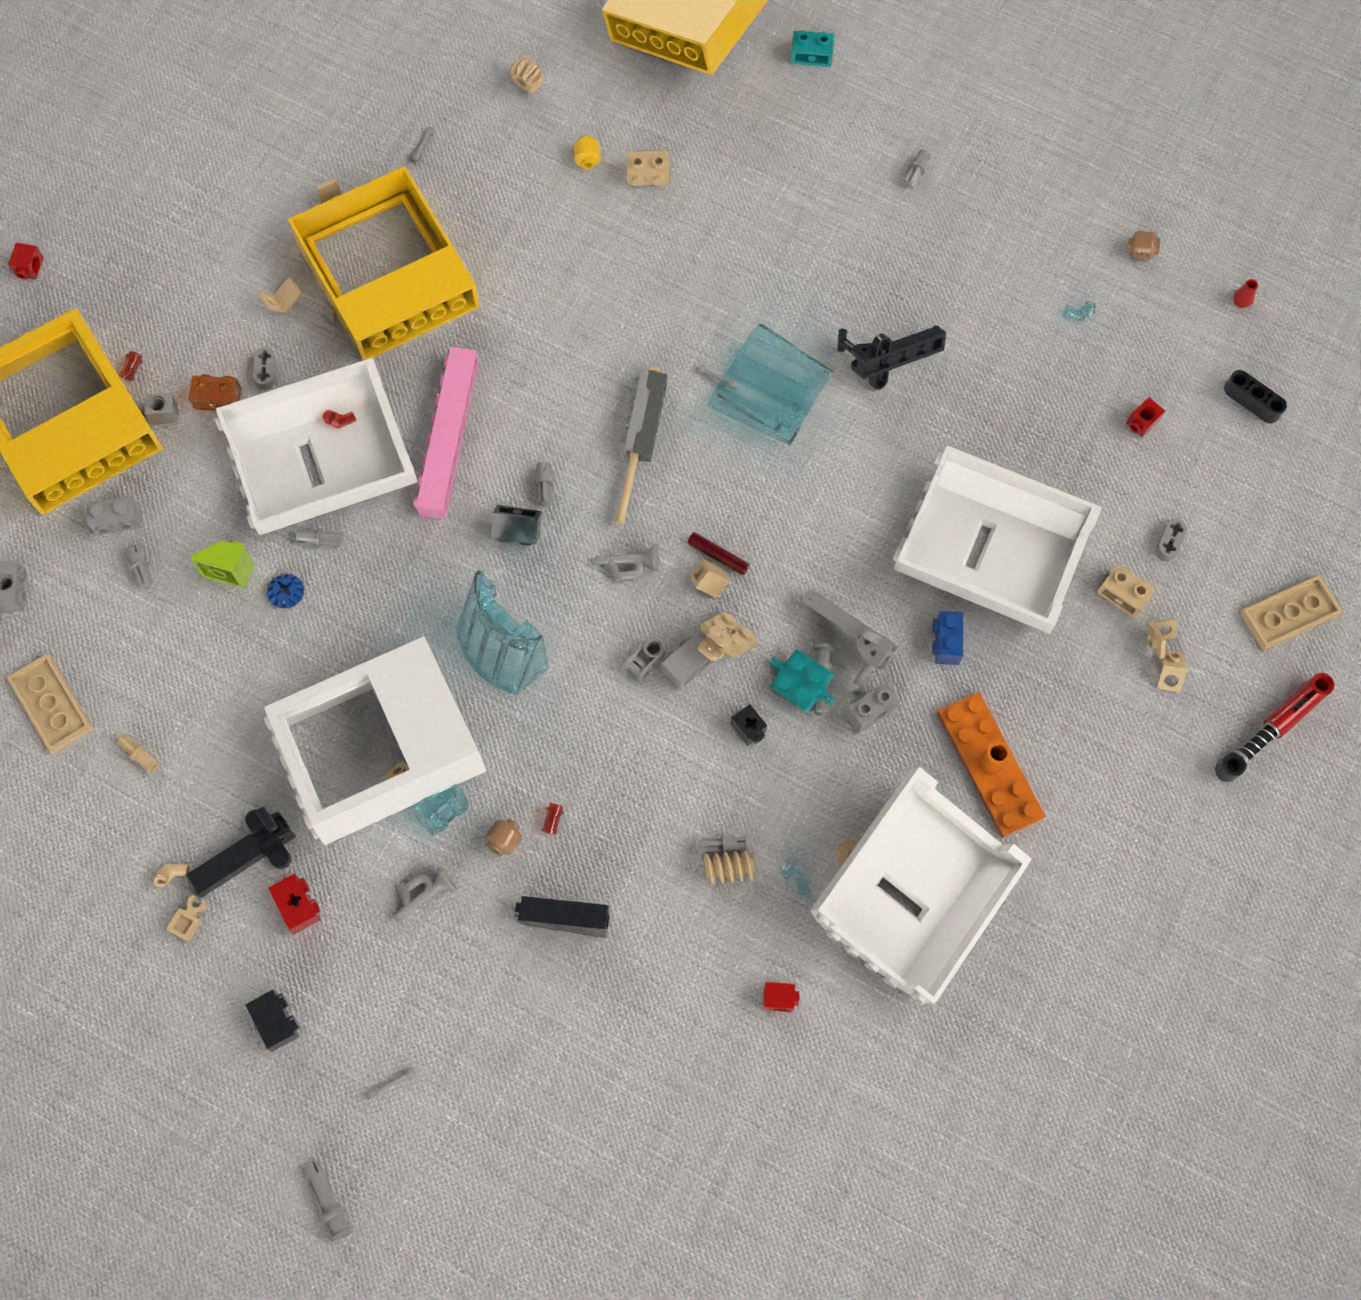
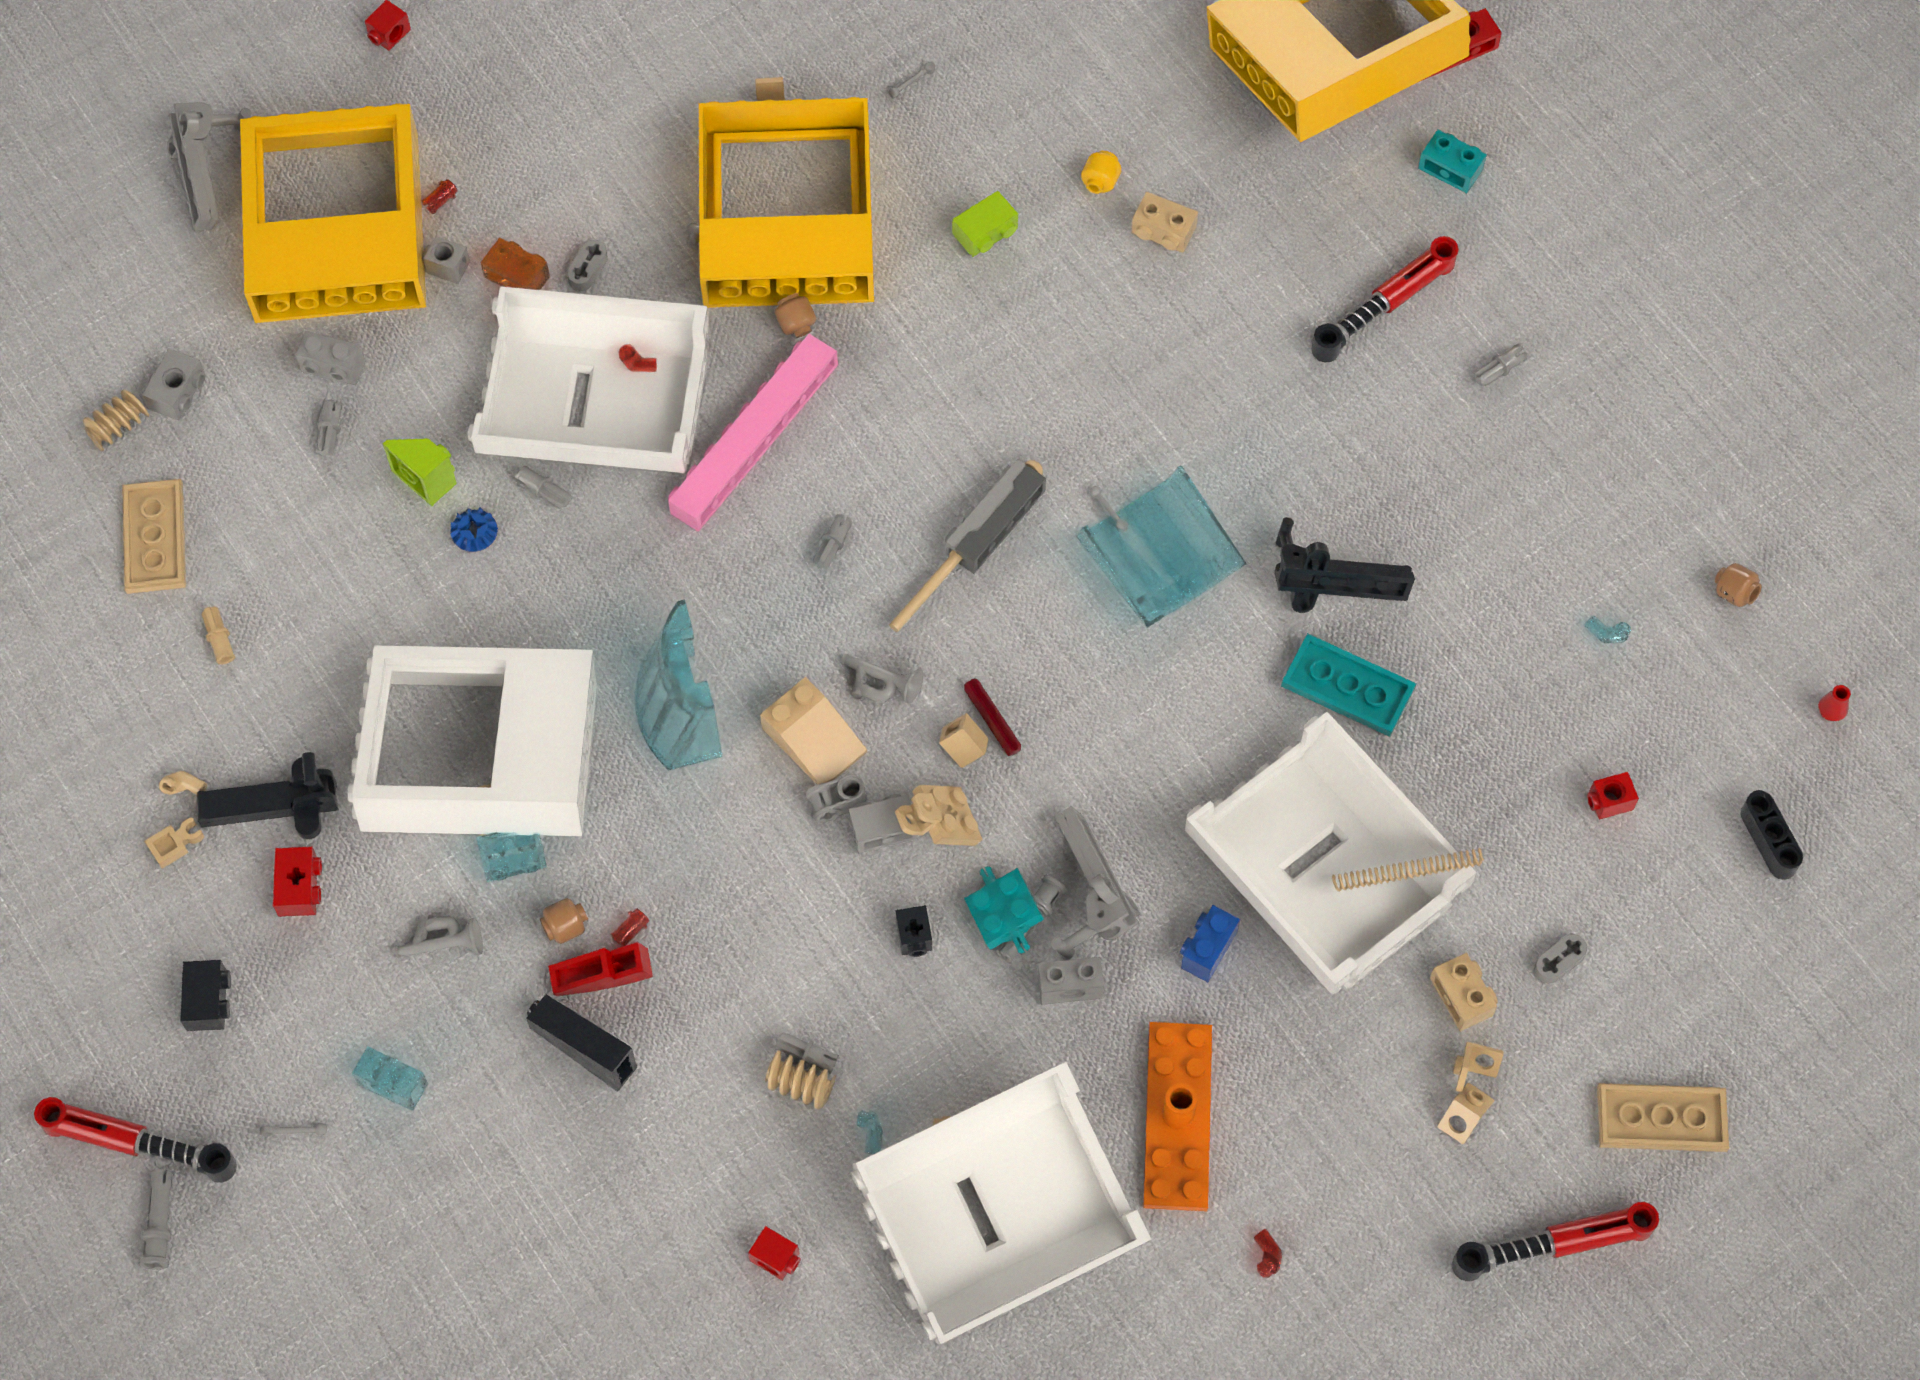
camera: 30 degrees right, 5 degrees down
(274, 1152) = (131, 1138): none -> piece
(283, 297) = (651, 192): tan bracket -> none
(432, 339) = (795, 315): none -> medium nougat head
(441, 1011) = (390, 1078): none -> clear light blue brick
(516, 525) = (771, 574): black brick -> none
(526, 74) = (1079, 48): tan gear -> none
(529, 220) = (985, 224): none -> lime brick
(548, 859) = (601, 970): none -> red slope
(604, 622) = (812, 732): none -> tan slope
(820, 156) = (1387, 297): none -> piece
(939, 422) = (1348, 685): none -> teal plate
(1055, 524) = (1414, 873): none -> tan piece
(1103, 826) = (1272, 1254): none -> clear red arm

